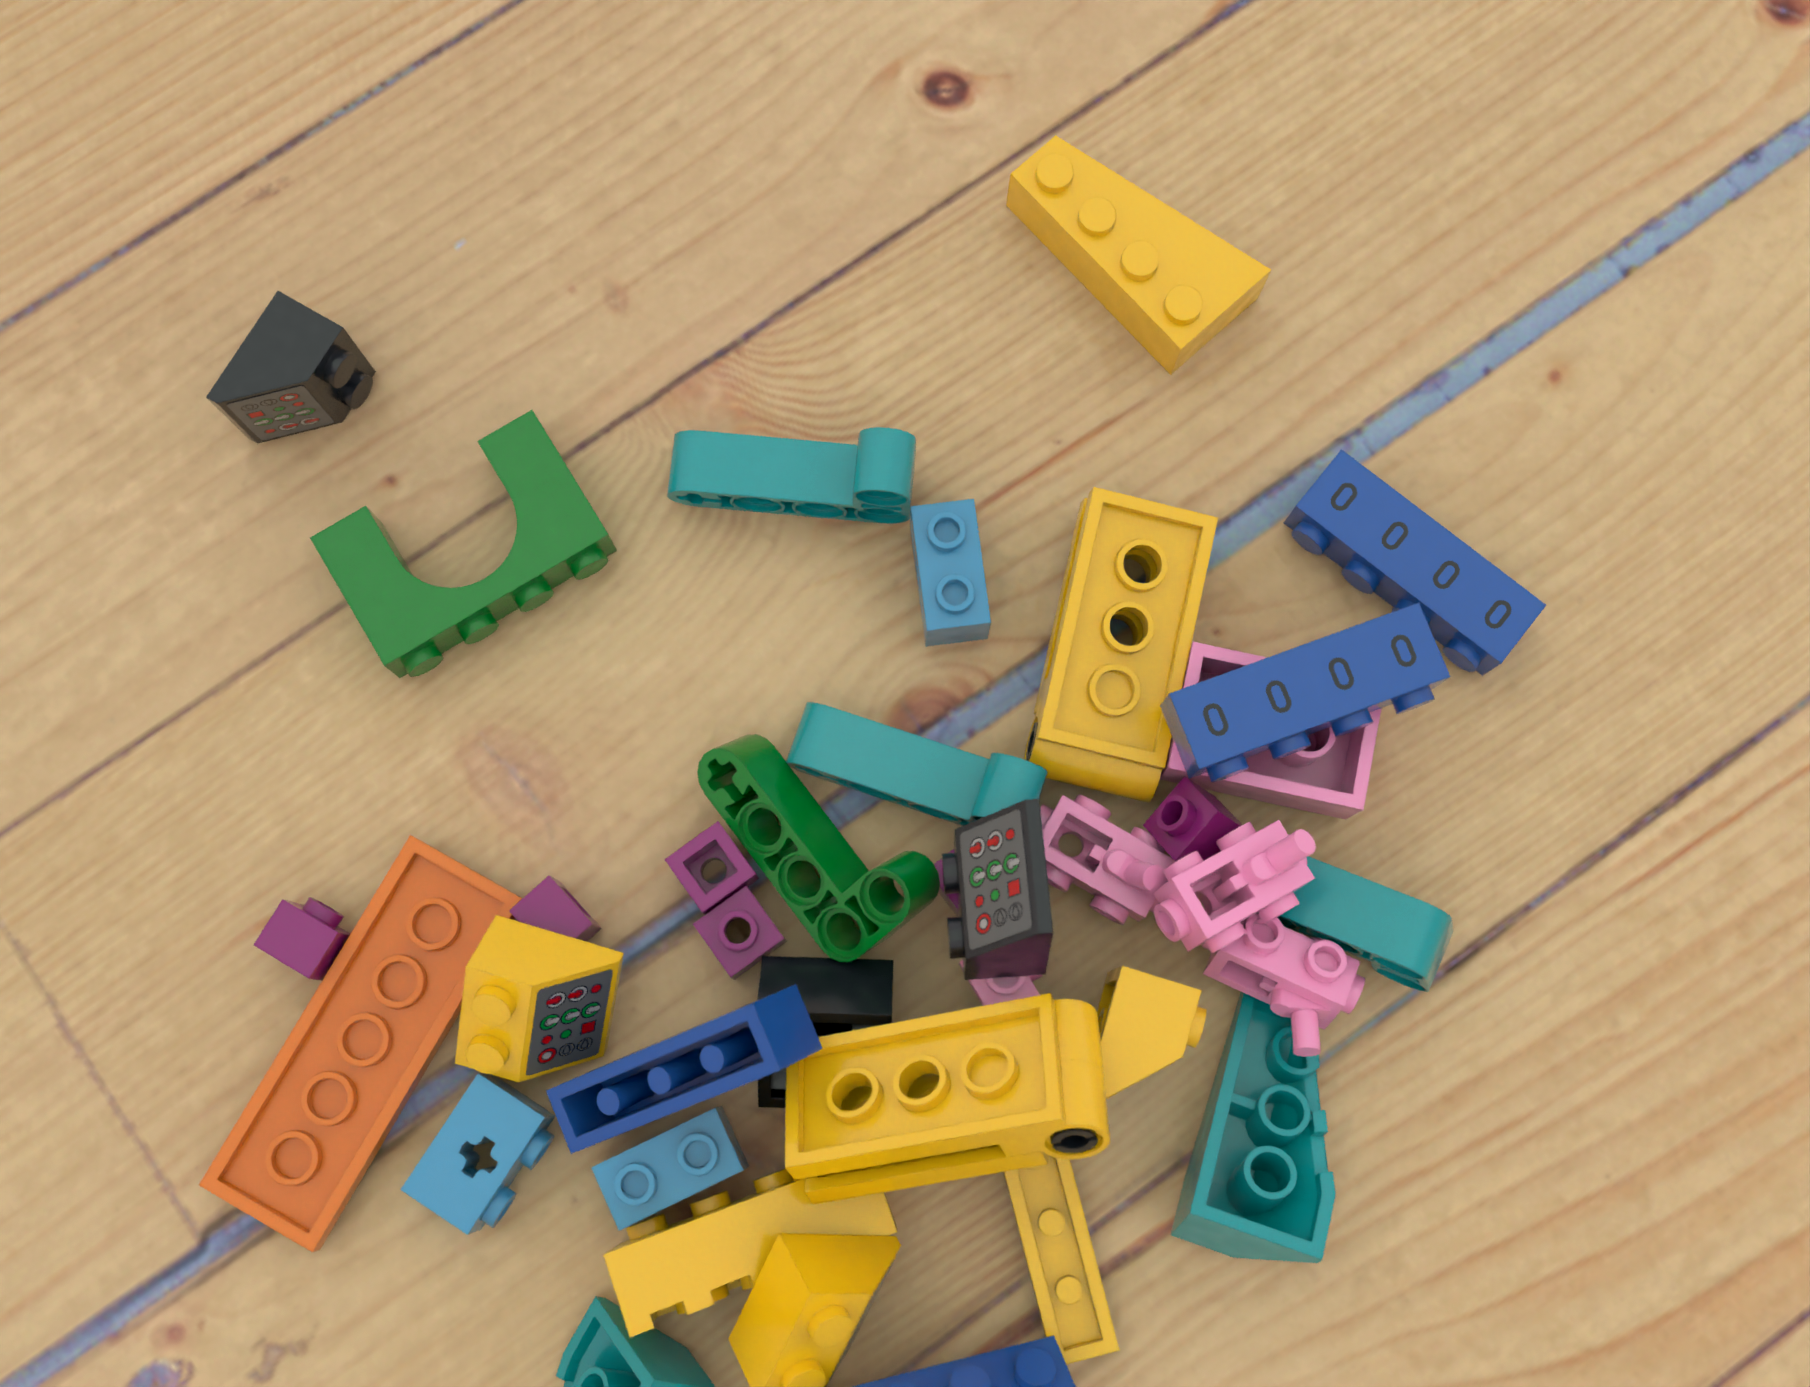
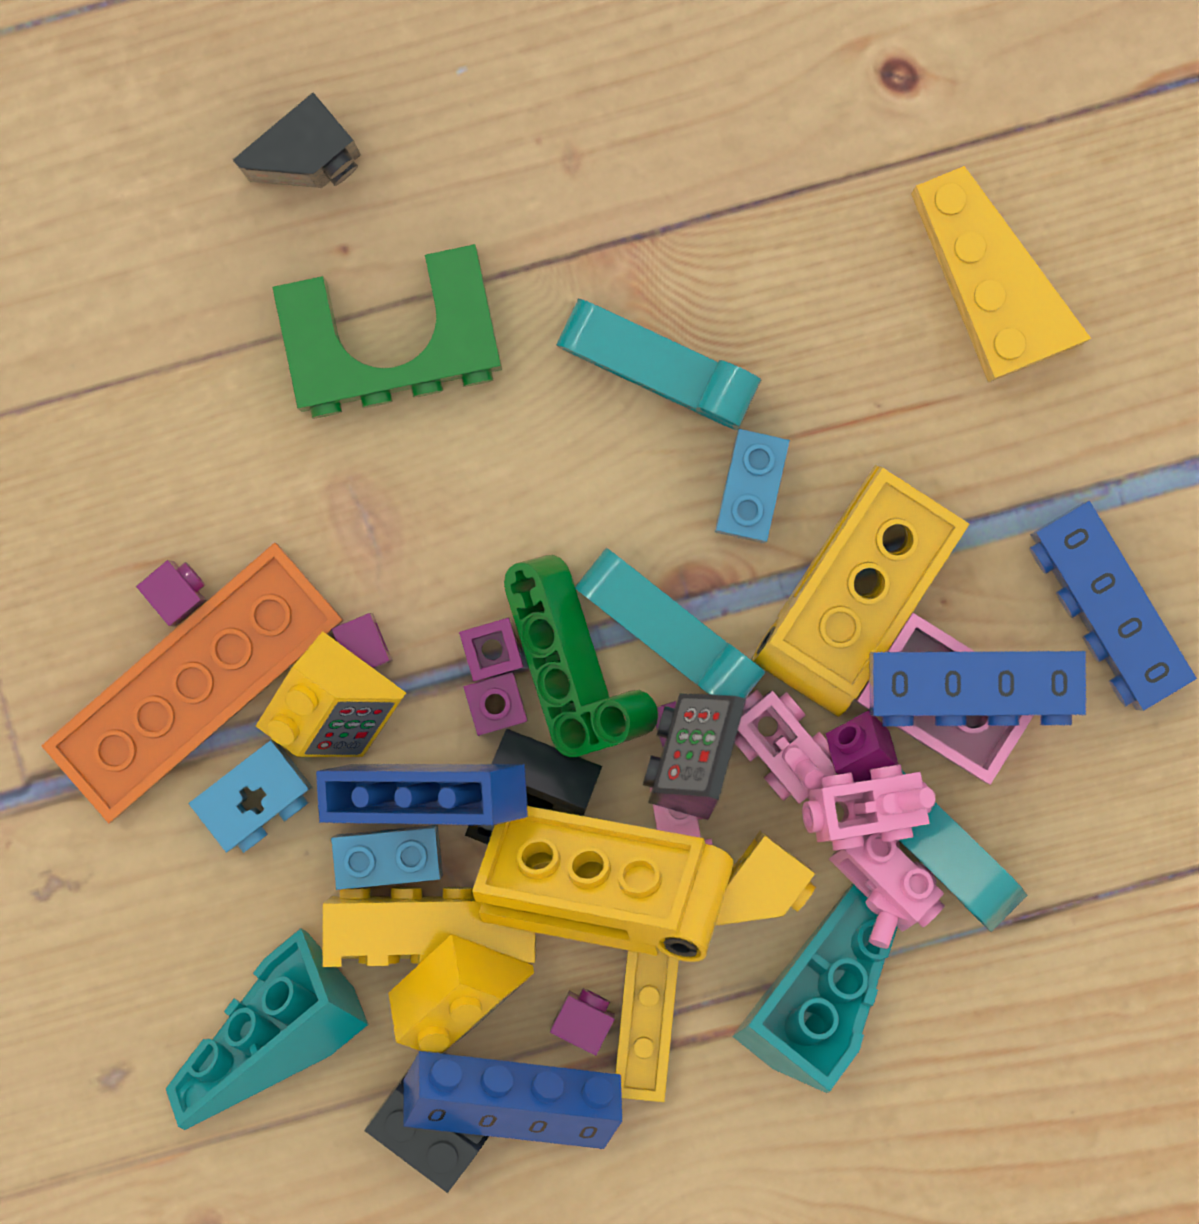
camera: 25 degrees right, 10 degrees up
(983, 1283) = (583, 1020): none -> magenta plate

